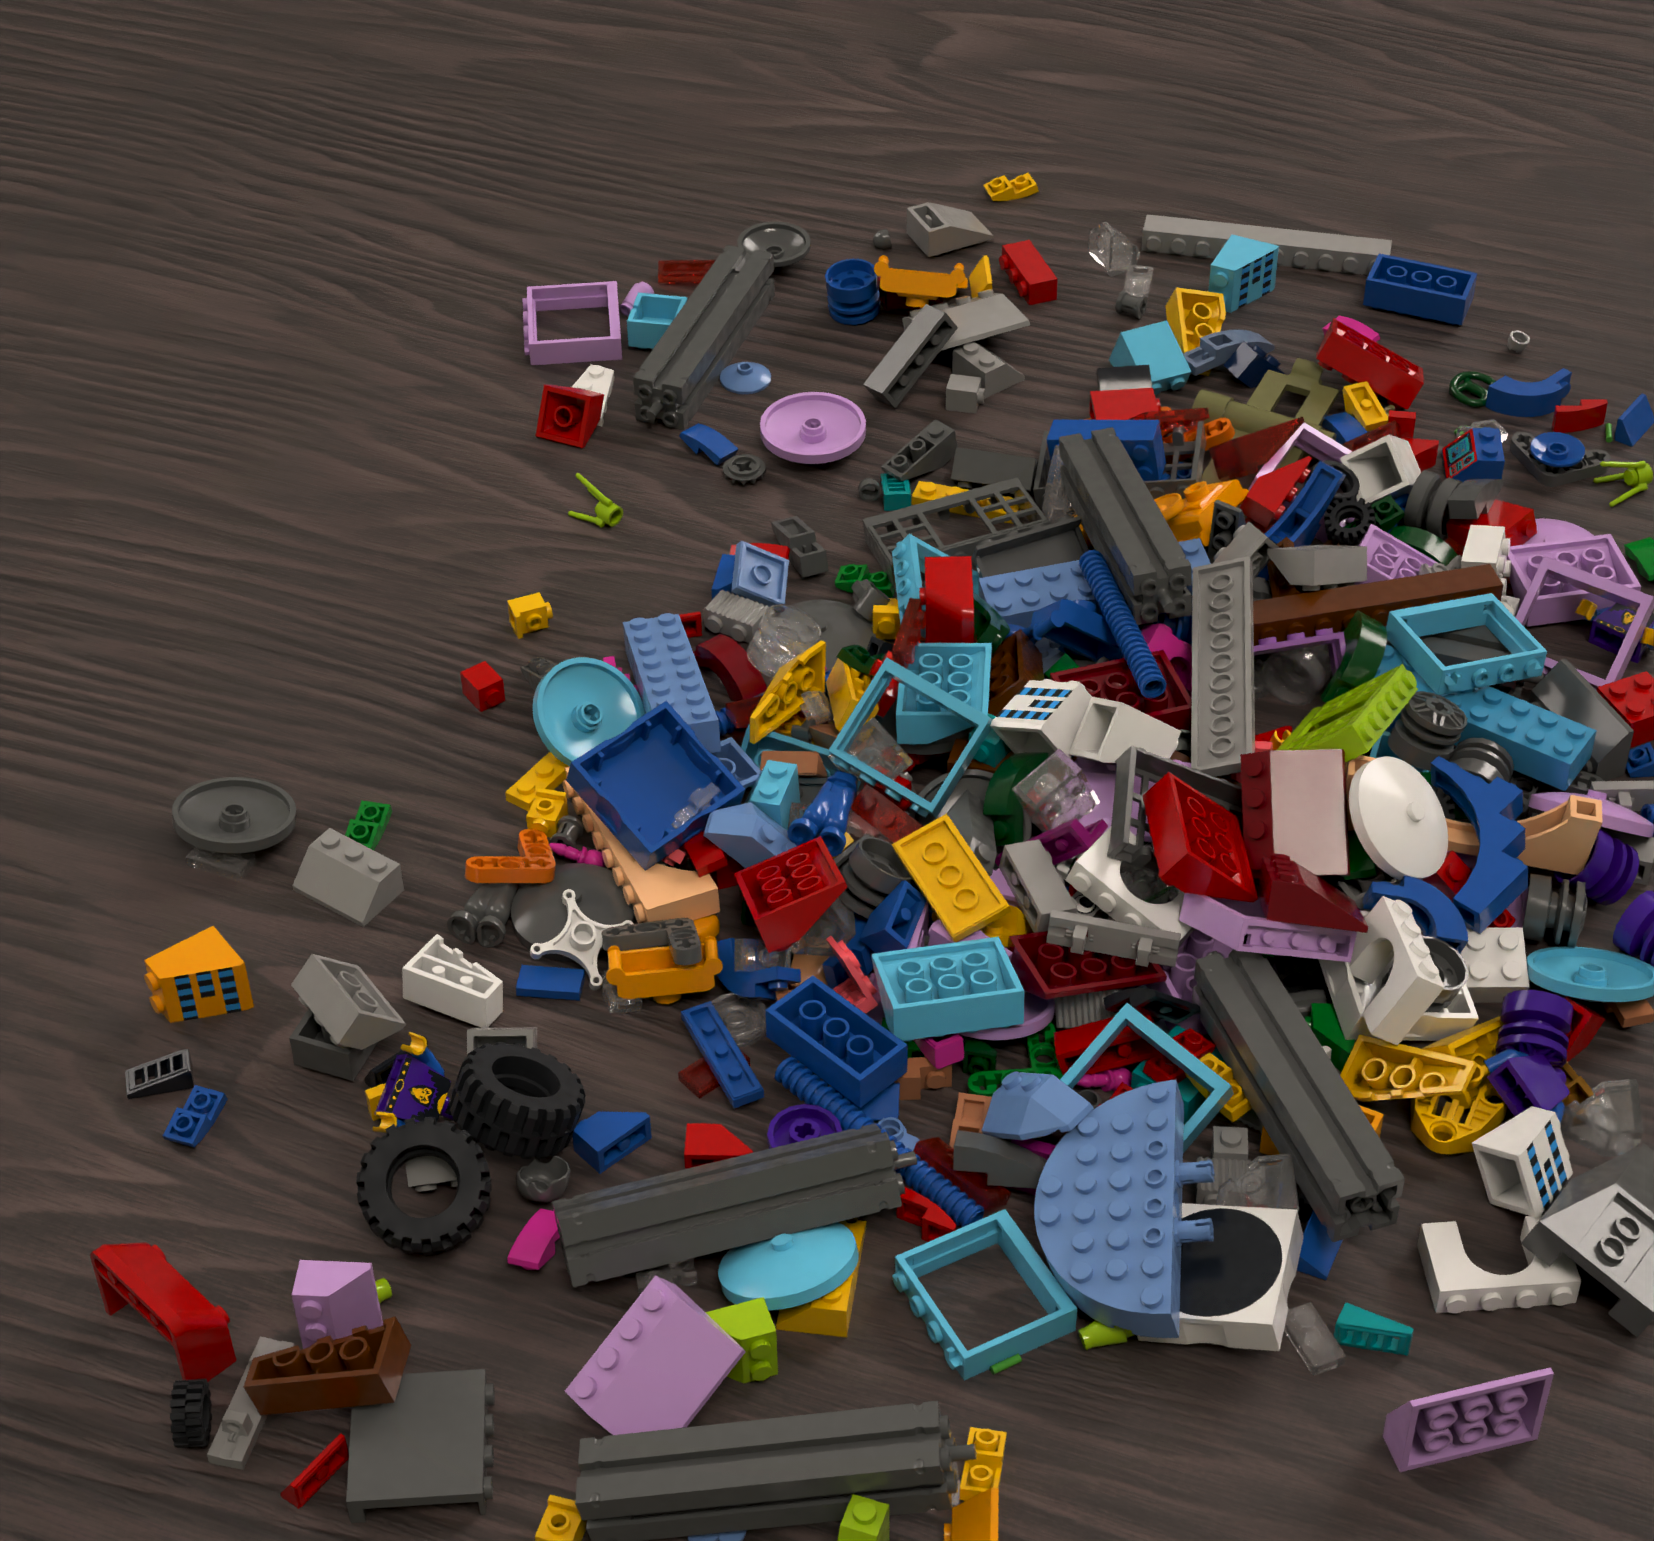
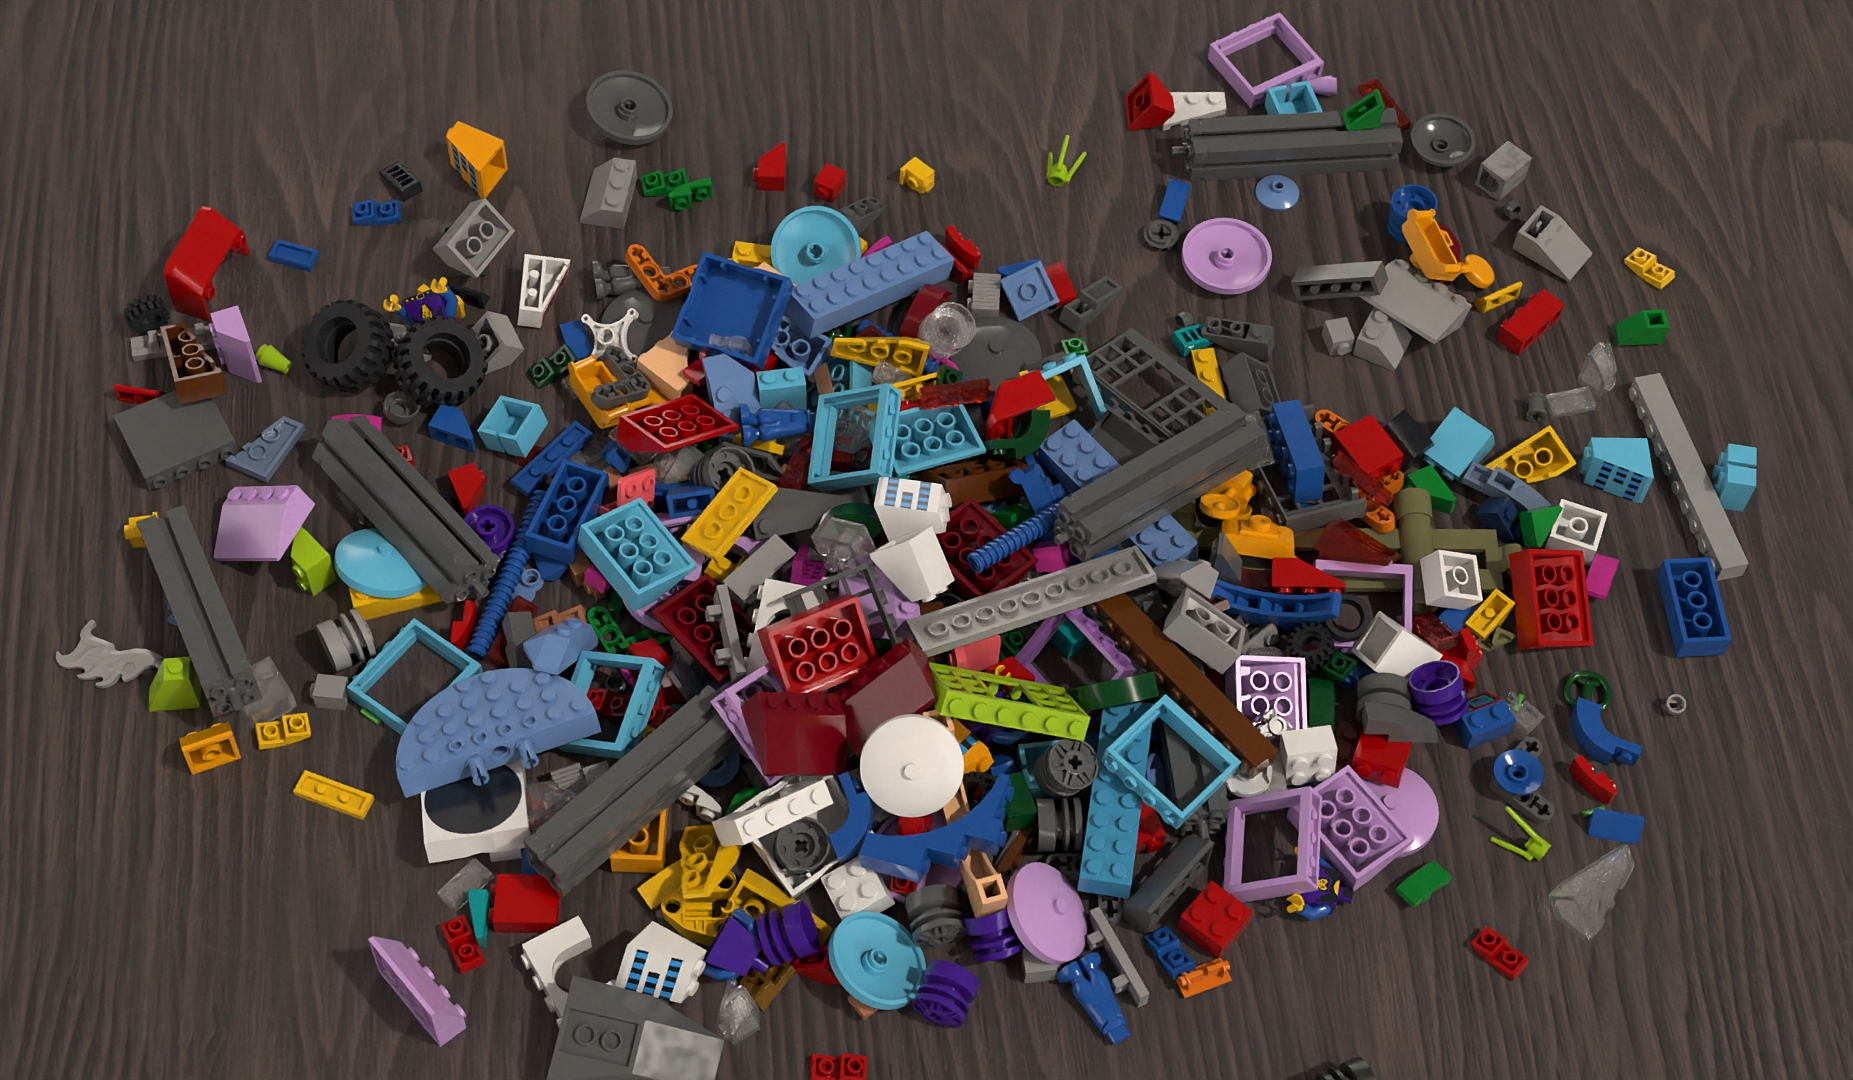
camera: 60 degrees right, 15 degrees up
(197, 1228) = (293, 255): none -> blue tile
(407, 802) = (682, 197): none -> green slope
(427, 725) = (771, 169): none -> red slope
(513, 1348) = (268, 451): none -> sand blue wing
(576, 1013) = (549, 370): none -> dark green slope
(656, 1068) = (512, 426): none -> medium azure piece
(663, 605) = (963, 250): none -> red slope
(727, 254) = (1365, 113): none -> green slope
(838, 223) = (1503, 171): none -> flat silver piece
(890, 1338) = (346, 639): none -> light grey wheel
(954, 1387) = (330, 692): none -> light grey brick
(1085, 209) = (1643, 328): none -> green slope
(1110, 1439) = (333, 795): none -> yellow tile
(1183, 394) = (1428, 479): none -> green slope
(1280, 340) = (1537, 524): none -> green slope
(1296, 325) = (1577, 530): none -> white brick
(1300, 213) = (1733, 478): none -> medium azure piece
(1325, 404) = (1451, 580): none -> white brick
(1373, 1274) = (523, 904): none -> red brick
(1399, 1368) = (462, 944): none -> red slope
(1402, 1137) = (661, 885): none -> yellow slope
(1448, 453) = (1439, 691): none -> dark purple wheel

